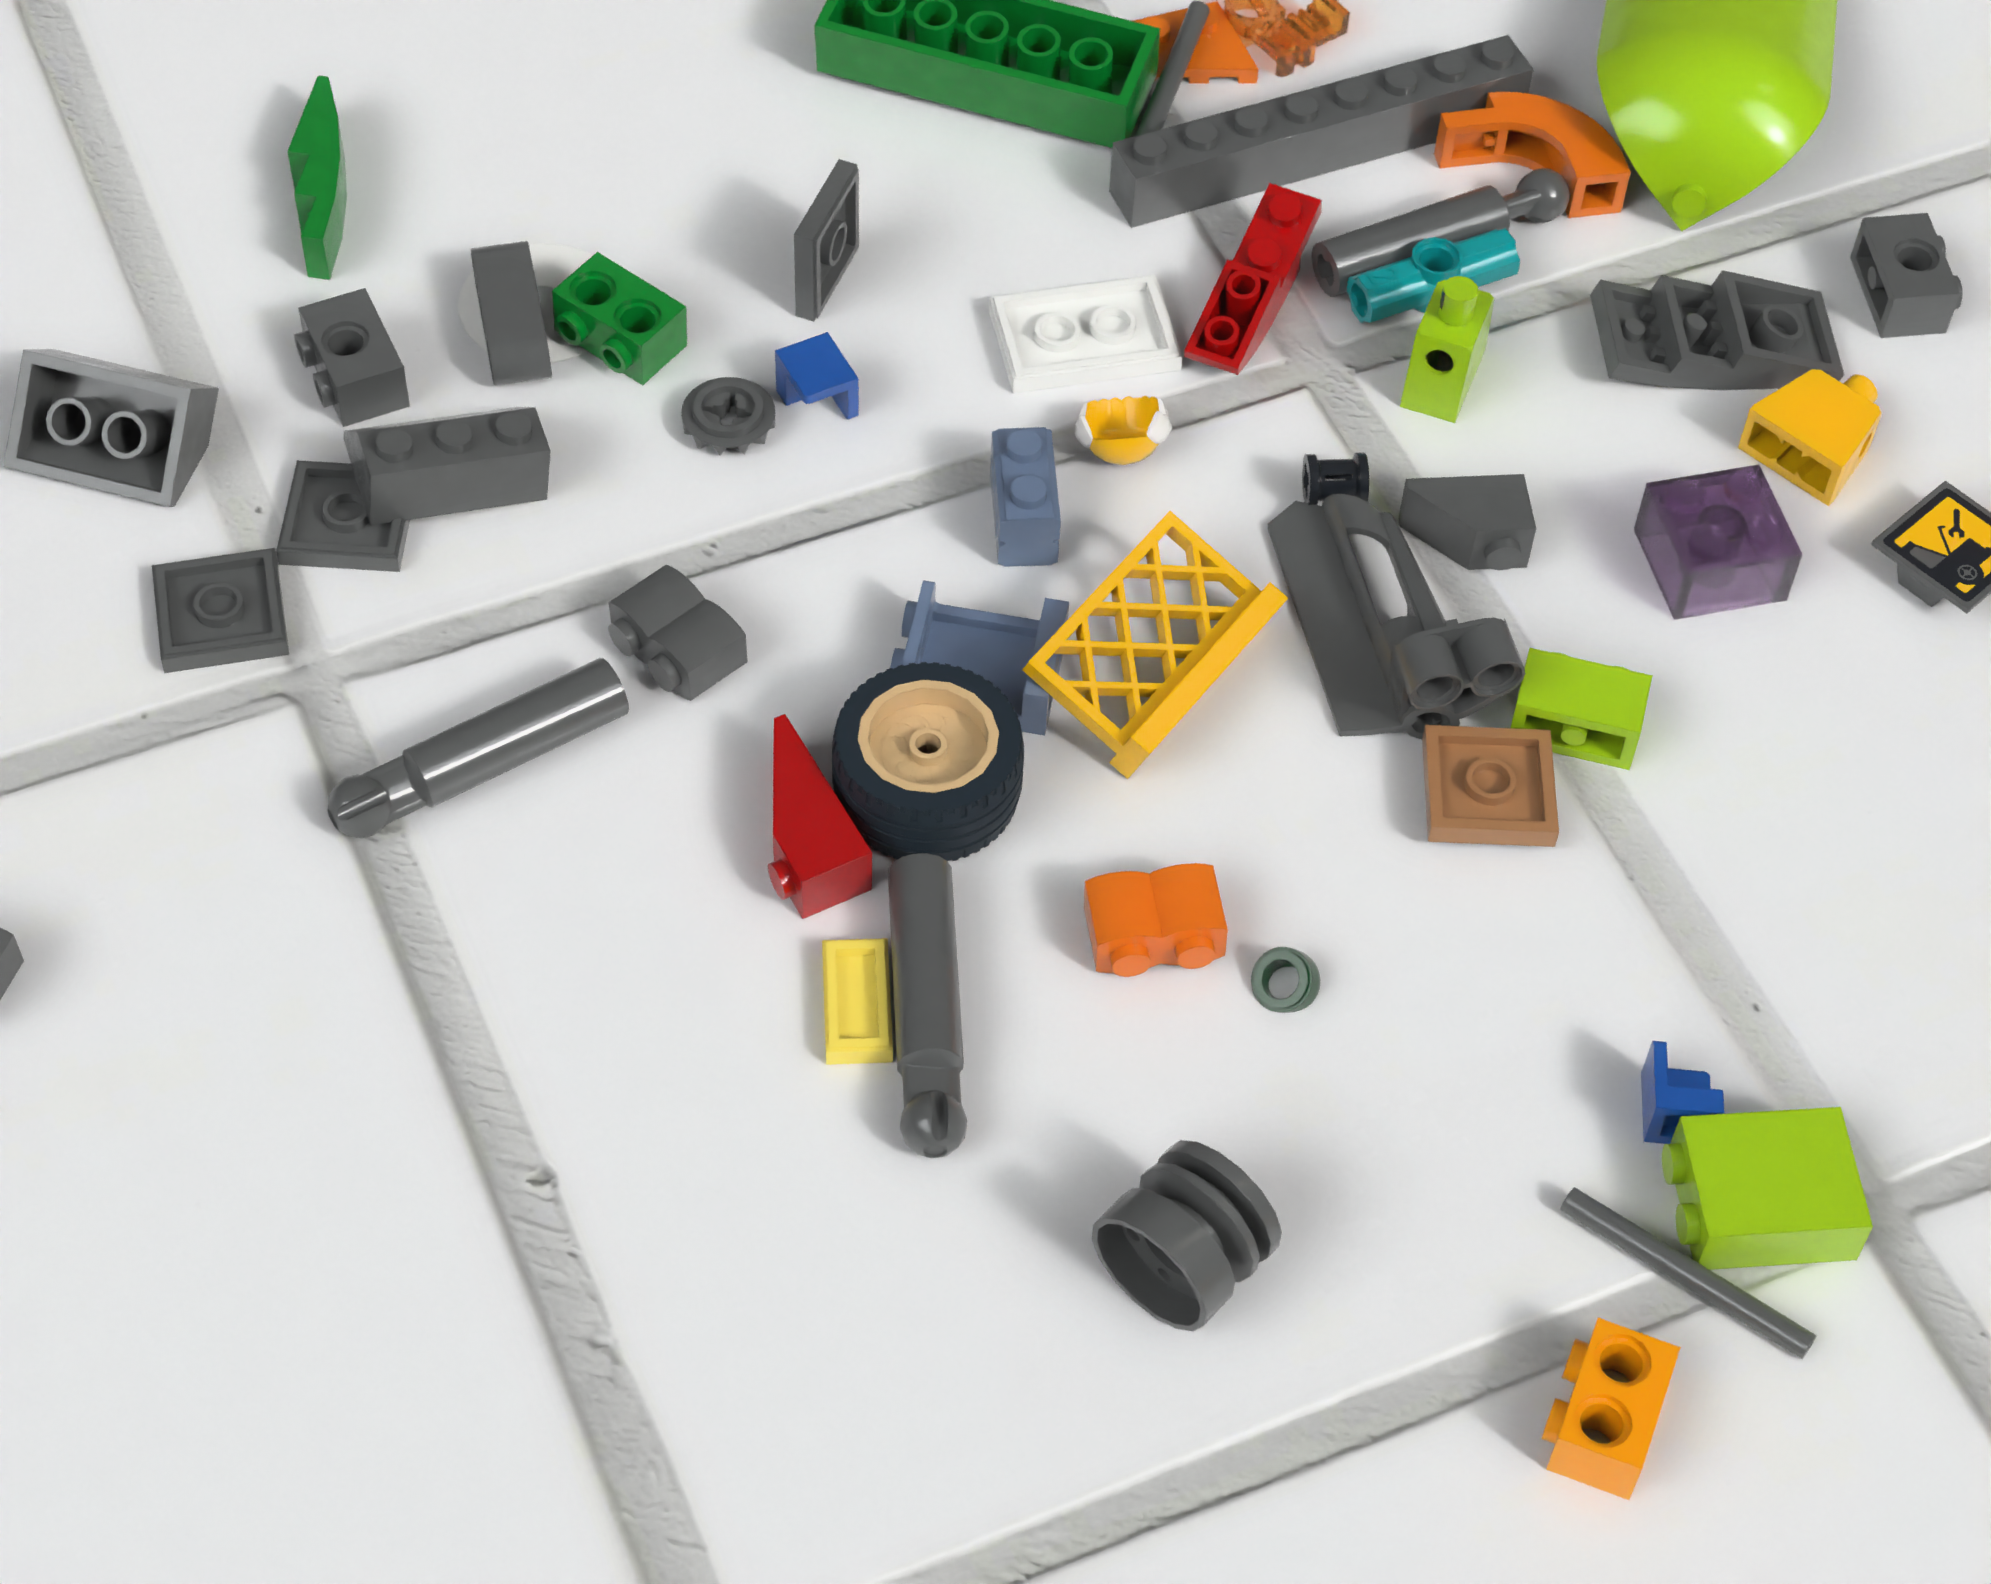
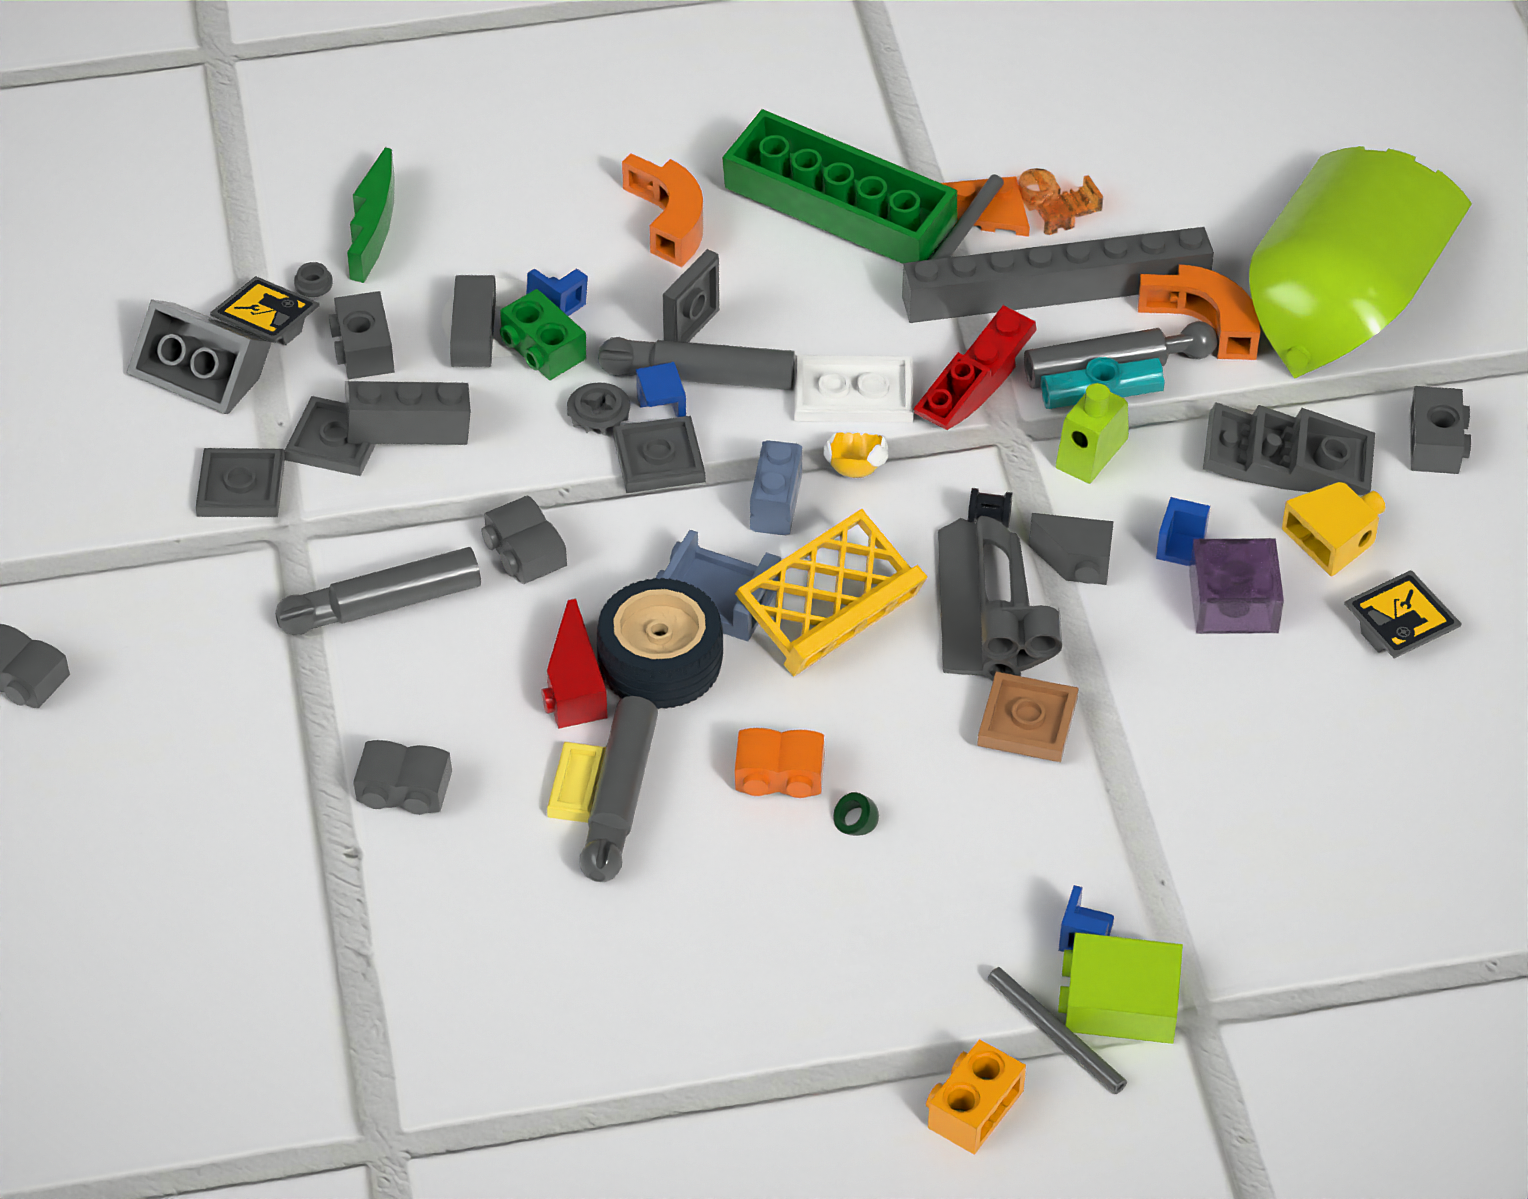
camera: 15 degrees right, 5 degrees down
(197, 341) = (266, 310): none -> piece
(255, 285) = (313, 280): none -> dark grey plate
(592, 1041) = (402, 777): none -> dark grey brick
(638, 252) = (567, 293): none -> blue panel
(757, 90) = (674, 189): none -> orange arch
(834, 472) = (658, 454): none -> dark grey tile
(861, 326) = (702, 362): none -> dark grey piece
(1186, 1235) = (734, 947): dark grey wheel -> none
(1587, 706) = (1106, 677): lime brick -> none
(1613, 473) = (1181, 525): none -> blue panel

